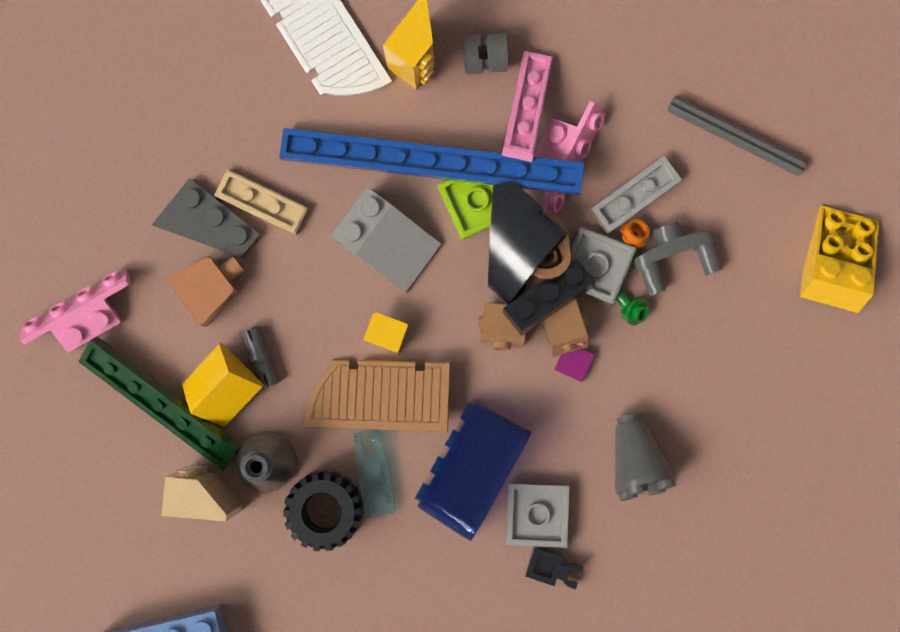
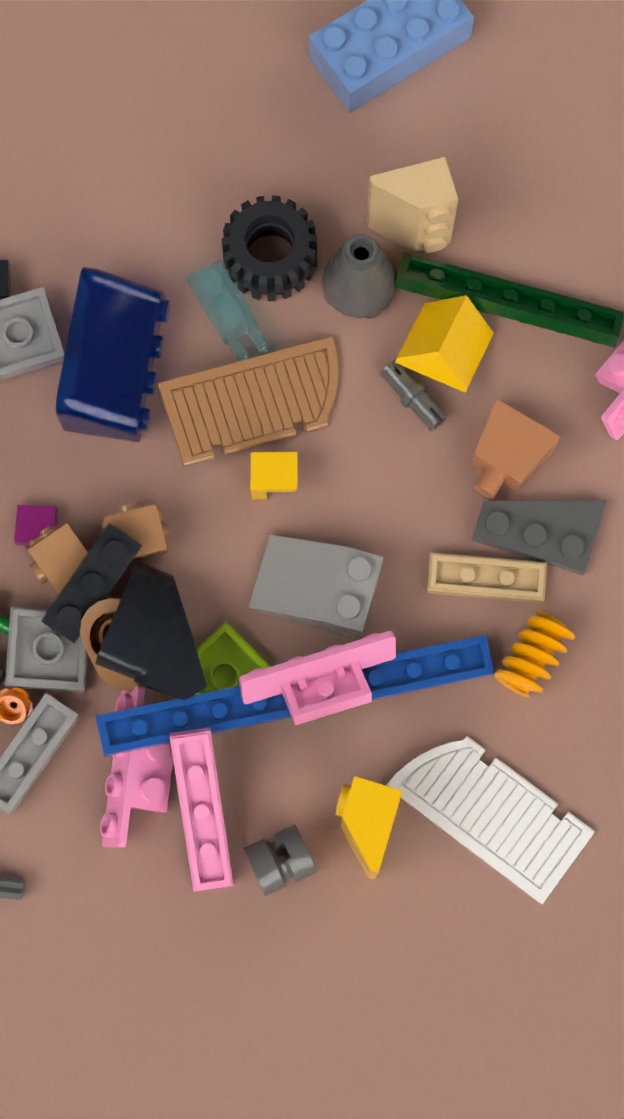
camera: 160 degrees right, 10 degrees down
(249, 129) = (534, 654): none -> light orange piece
(408, 156) = (321, 681): none -> bright pink bracket

